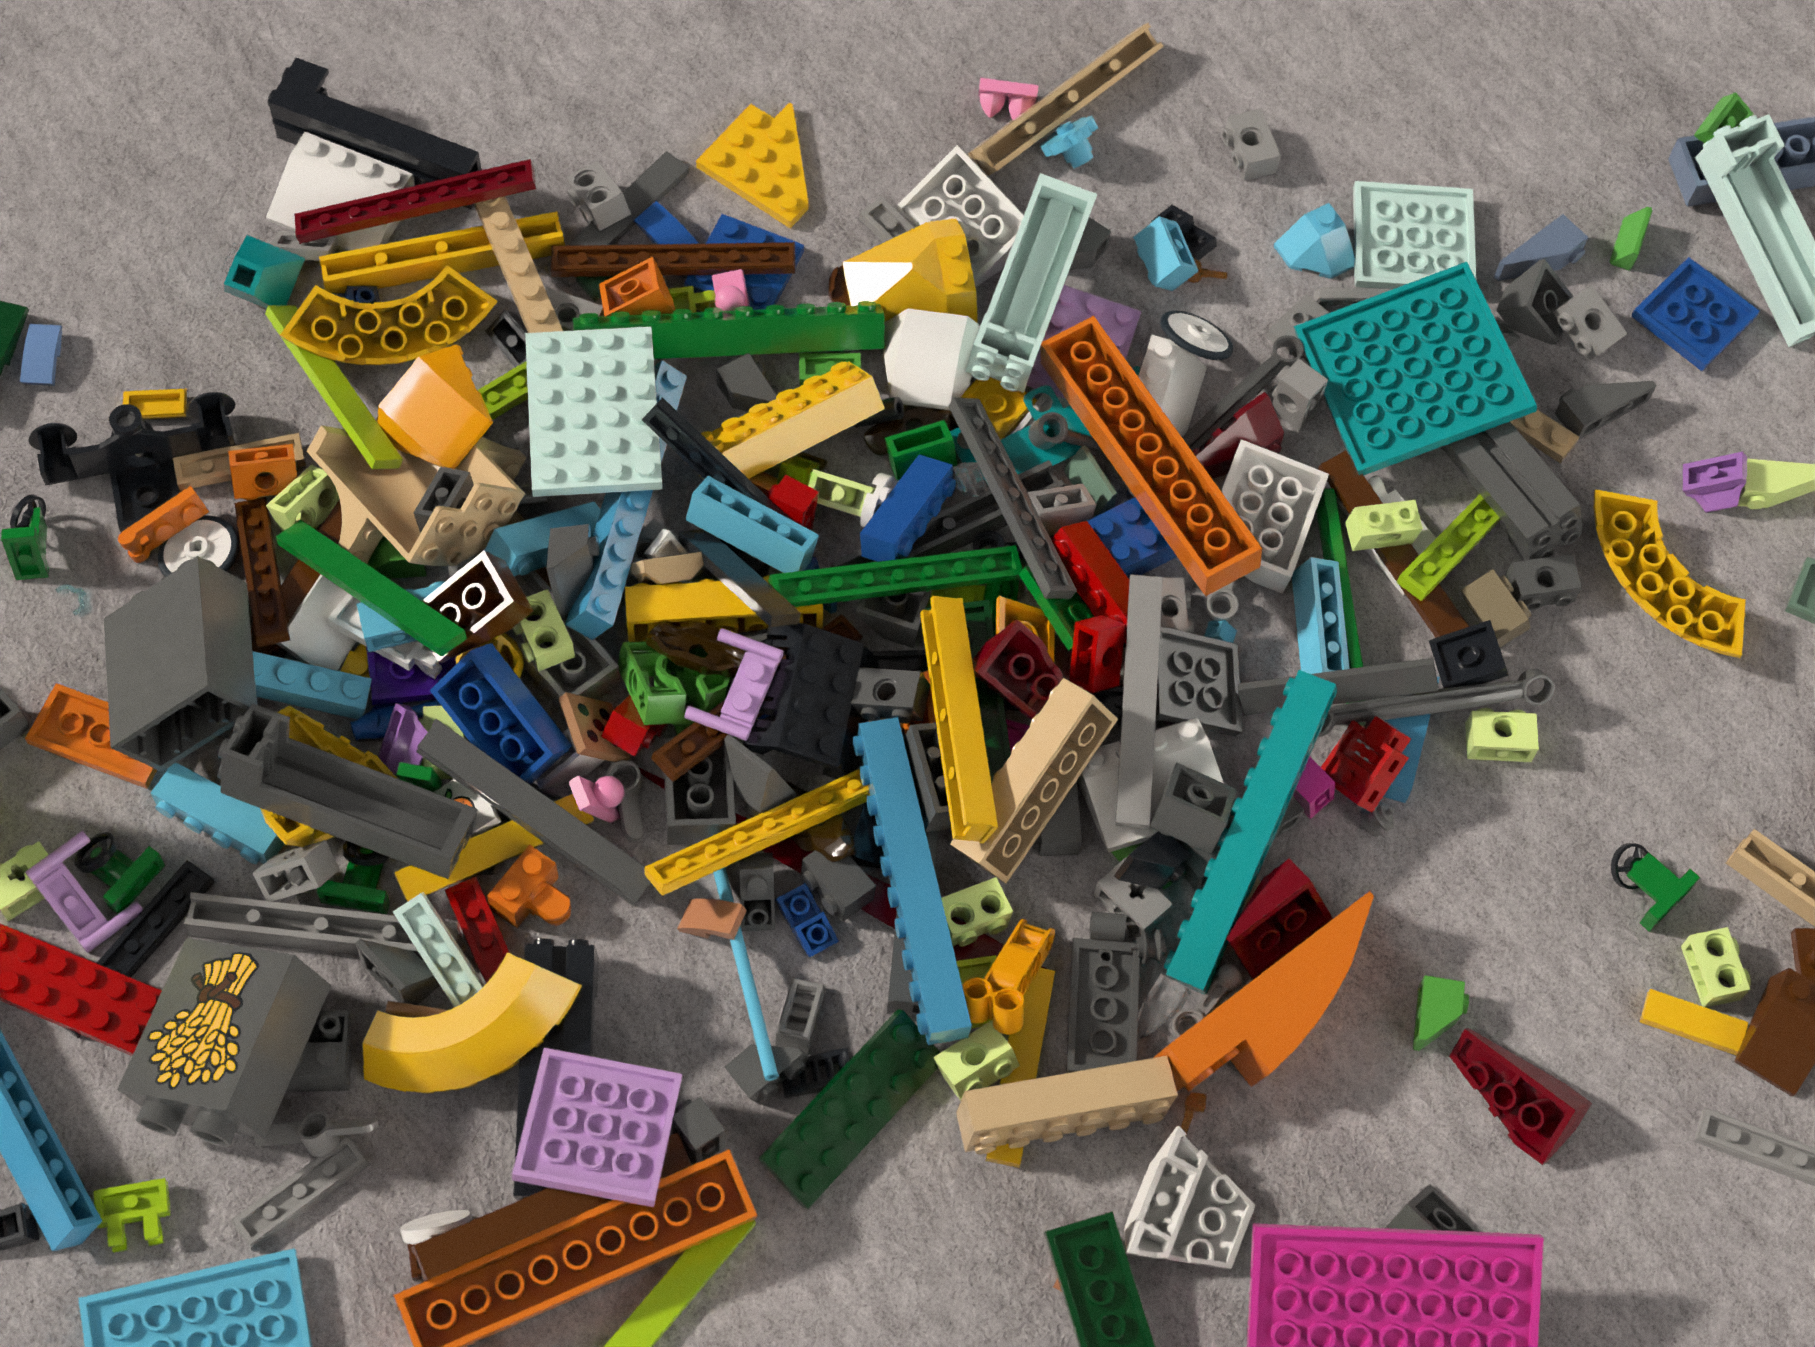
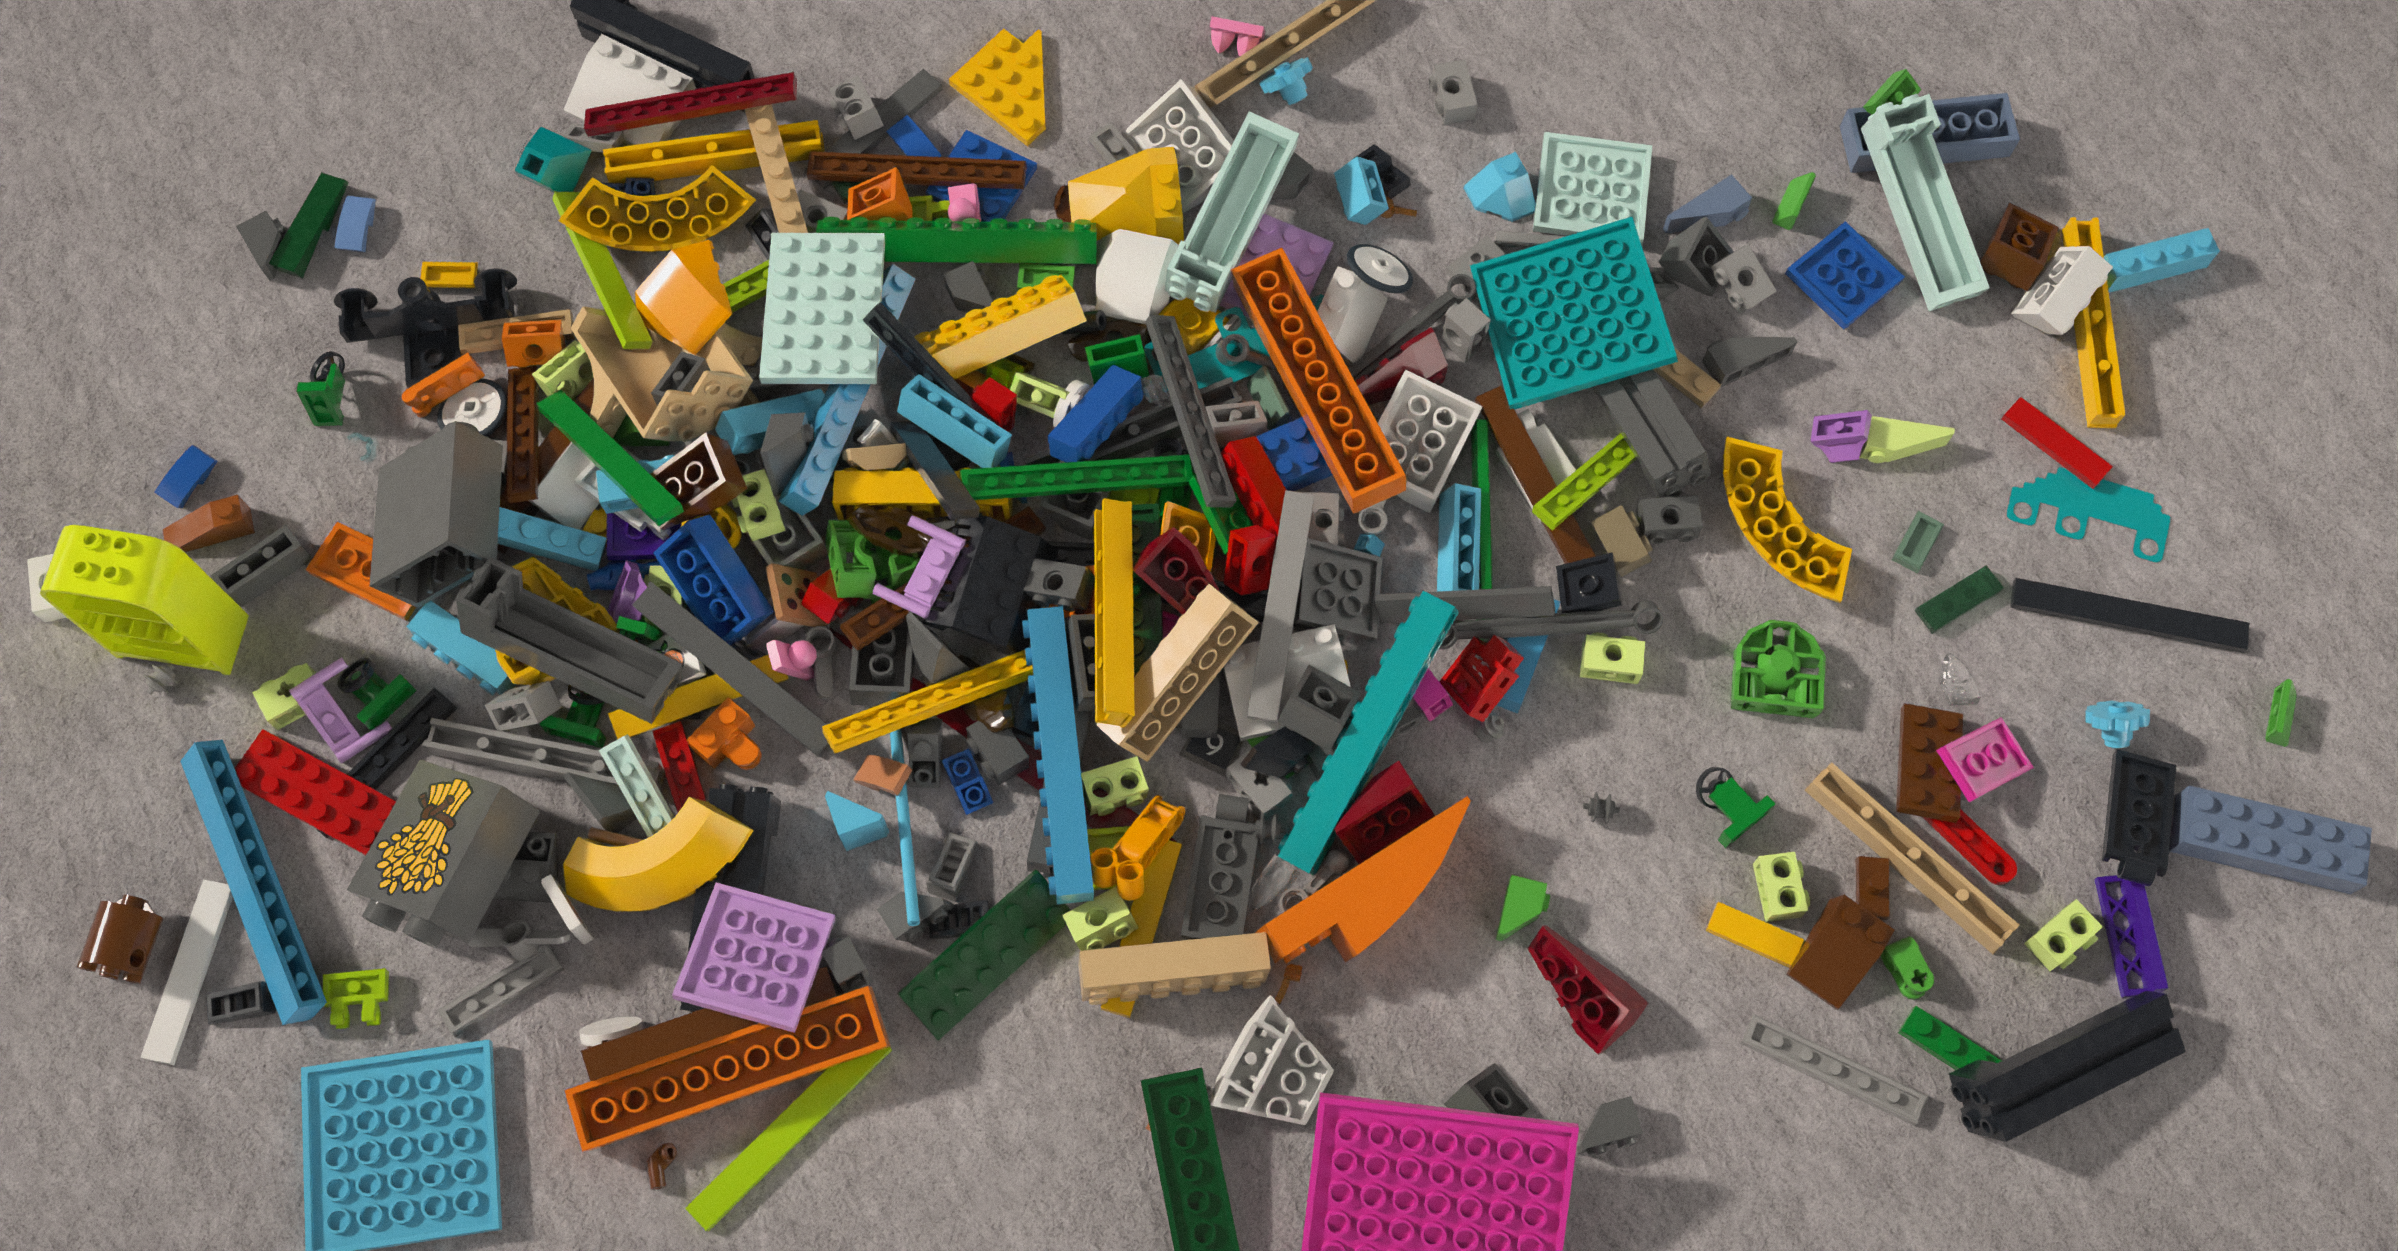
camera: 10 degrees right, 5 degrees up
(371, 1094) = (566, 909): none -> white tile
(688, 971) = (854, 822): none -> medium azure slope
(1078, 869) = (1214, 753): none -> piece
(1383, 525) = (1525, 458): yellowish green brick -> none
(1510, 897) = (1601, 808): none -> dark grey wheel
(1570, 1239) = (1610, 1125): none -> dark grey slope
(1675, 743) = (1769, 675): none -> bright green connector

